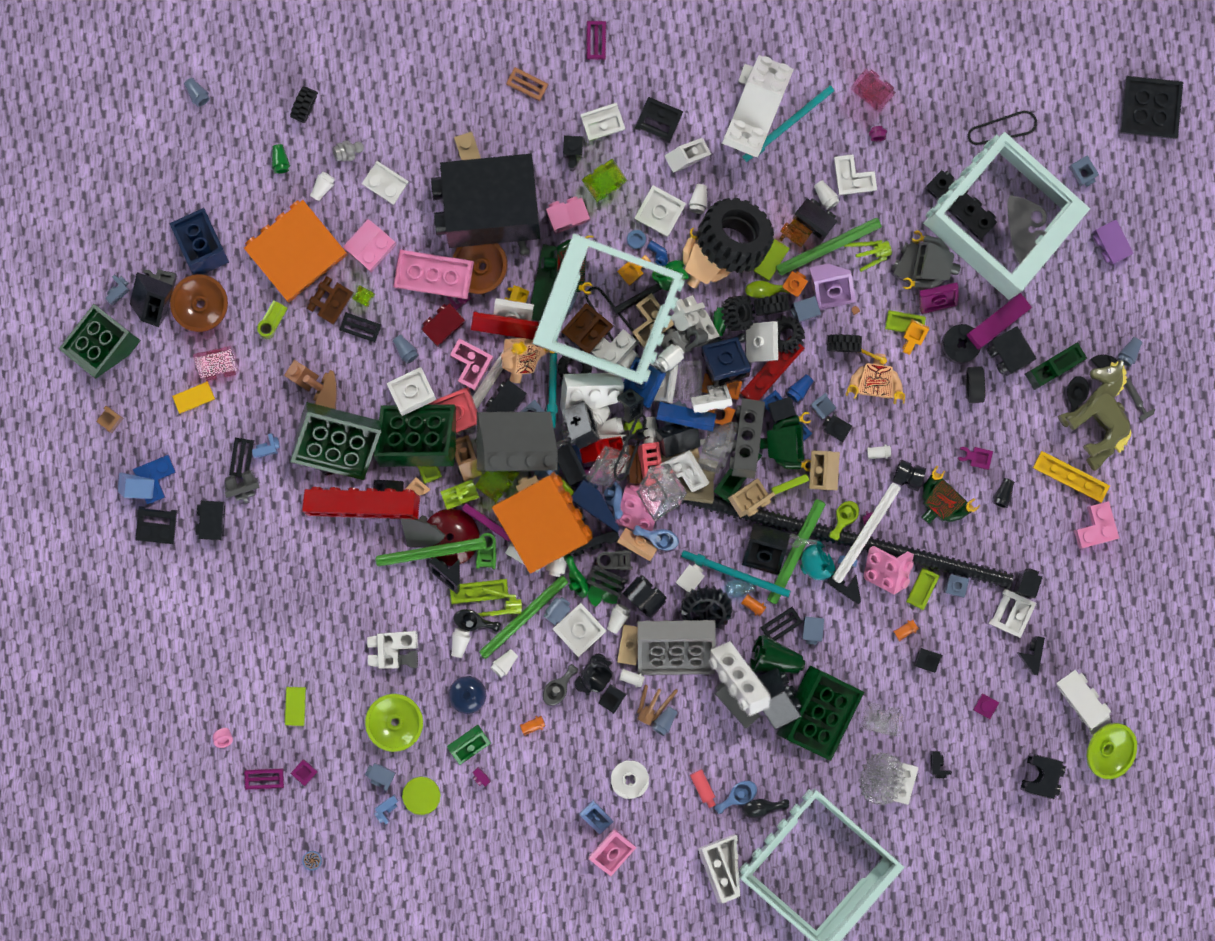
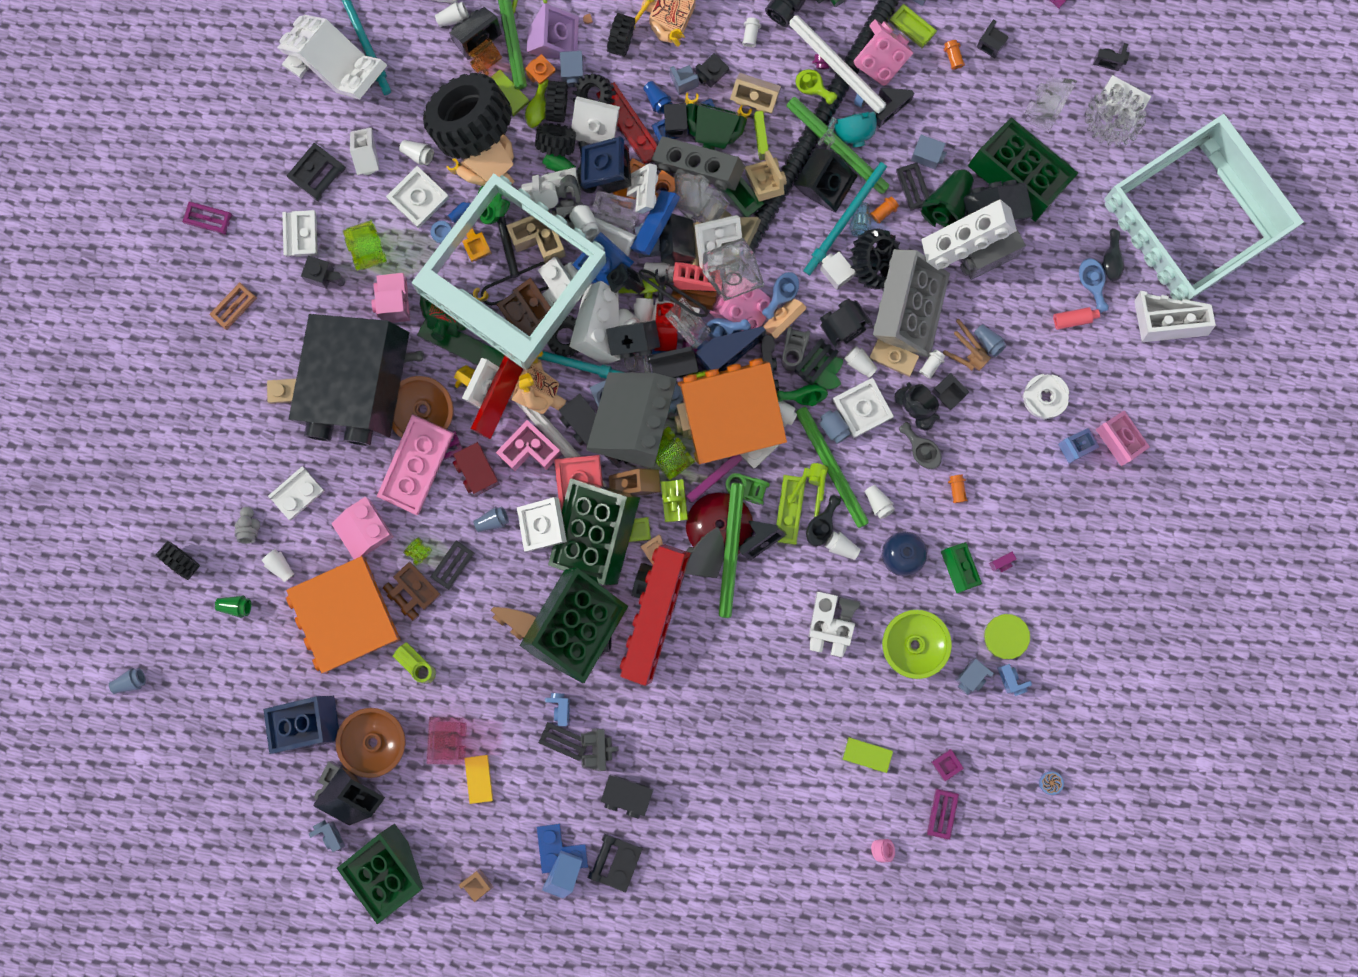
camera: 70 degrees left, 5 degrees down
(303, 376) = (490, 644): nougat brick -> none

